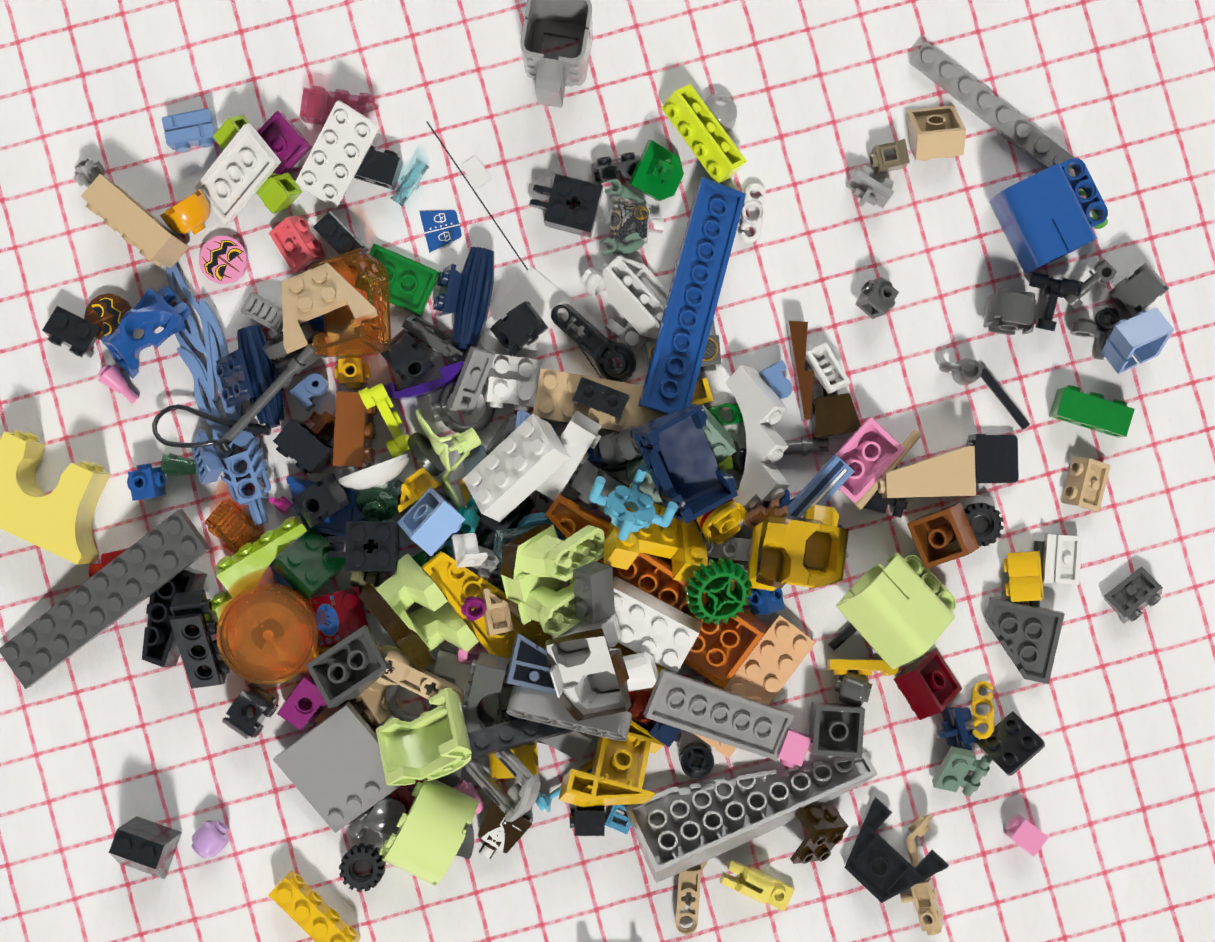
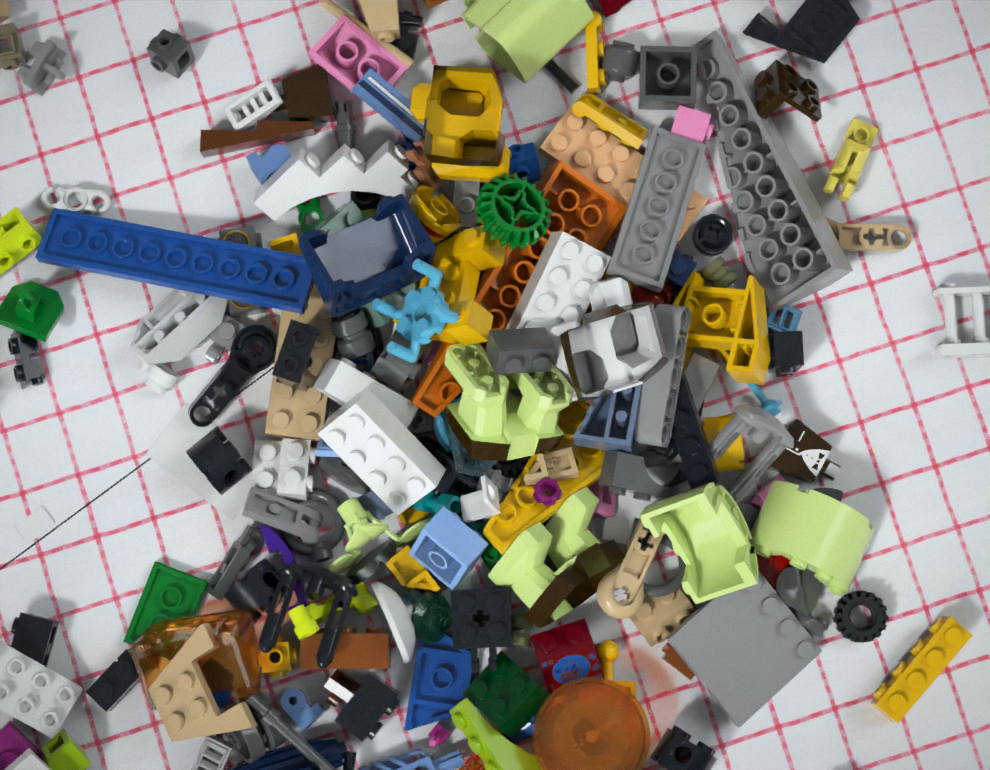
camera: 90 degrees left, 5 degrees down
(296, 243) = (125, 733): coral bracket -> none
(298, 711) = (651, 688): magenta brick -> none
(321, 500) = (429, 682): black brick -> none
(348, 668) = (624, 637): dark grey slope -> none
(410, 182) = (49, 601): clear light blue pin -> none
(411, 409) = (317, 579): none -> black piece
(440, 227) = (102, 564): blue sticker -> none
(467, 296) = (182, 526): dark blue plate -> none
(564, 192) = (83, 421): black hinge -> none
(629, 221) = (89, 340): torso -> none
(662, 763) = (718, 273): none -> olive wheel
(802, 677) = (610, 119): none -> yellow plate

